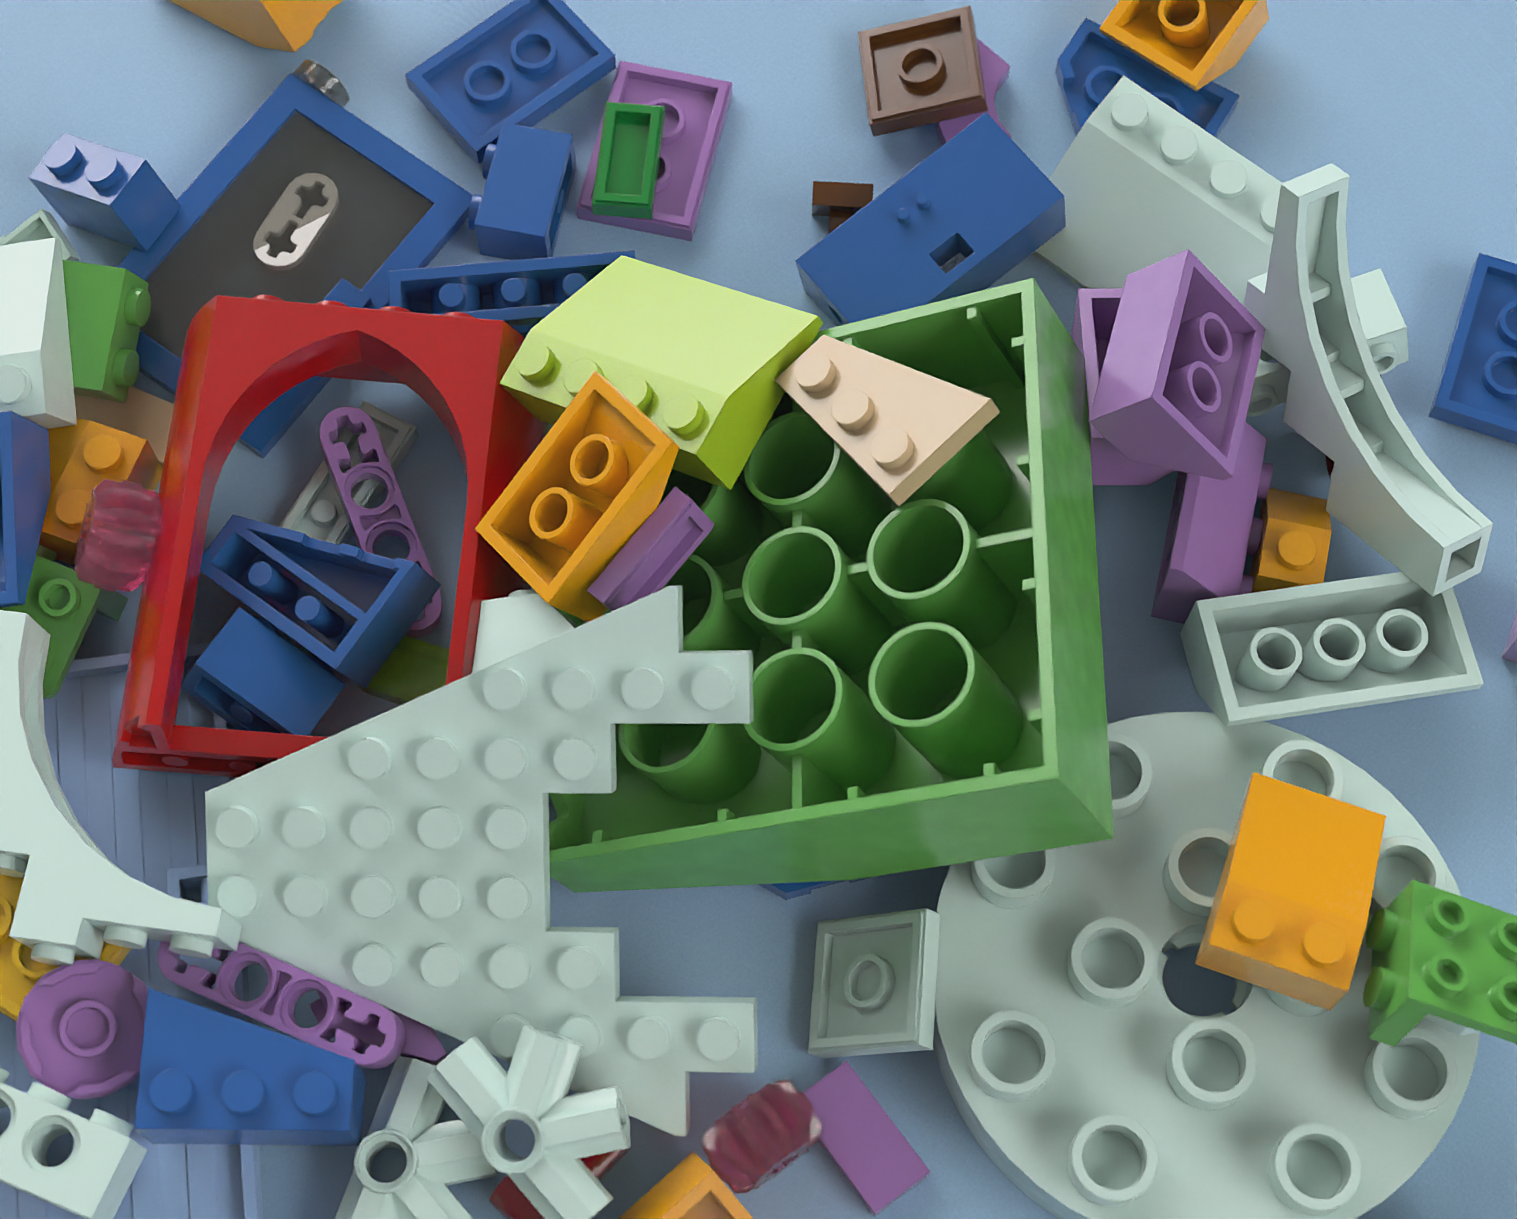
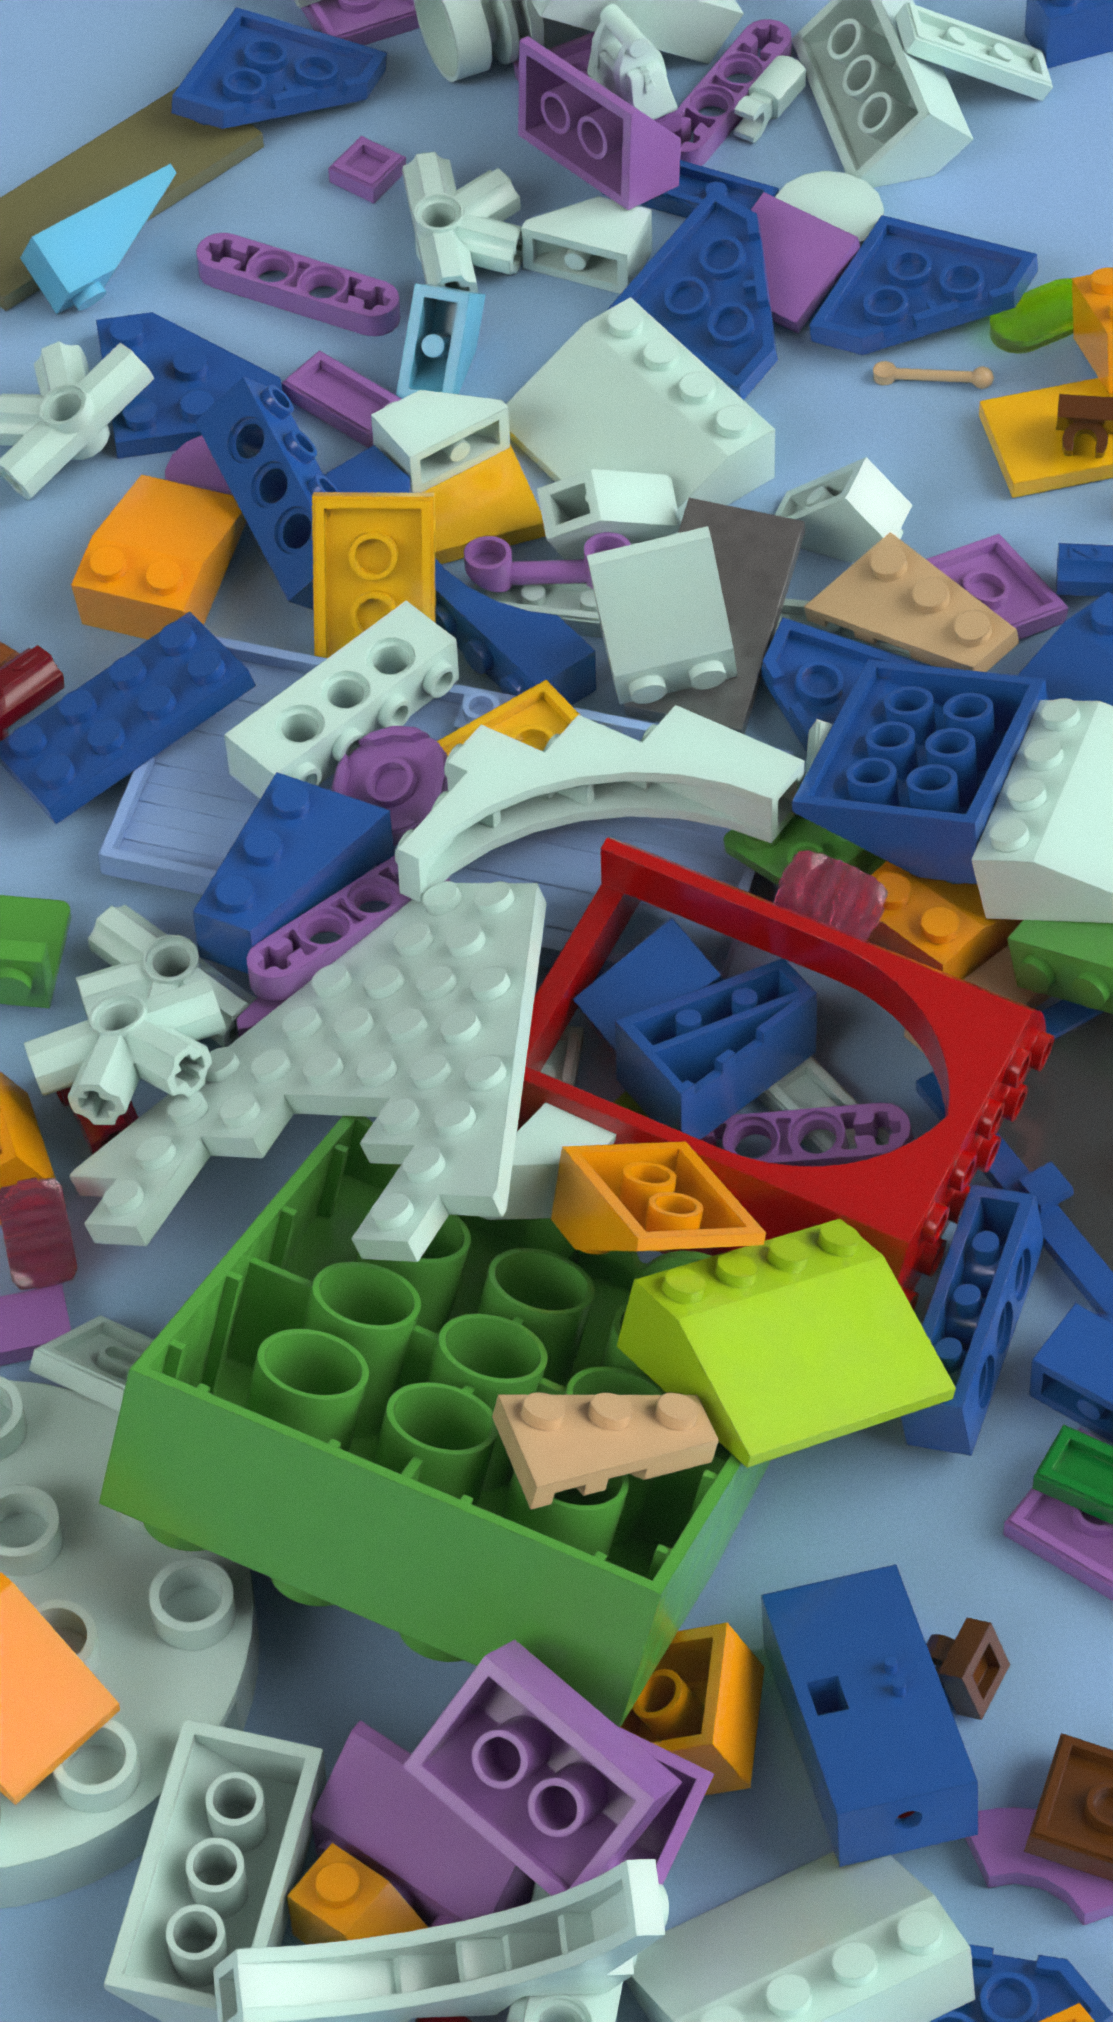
camera: 115 degrees right, 15 degrees down
(653, 552) = (574, 1253): medium lavender tile -> none

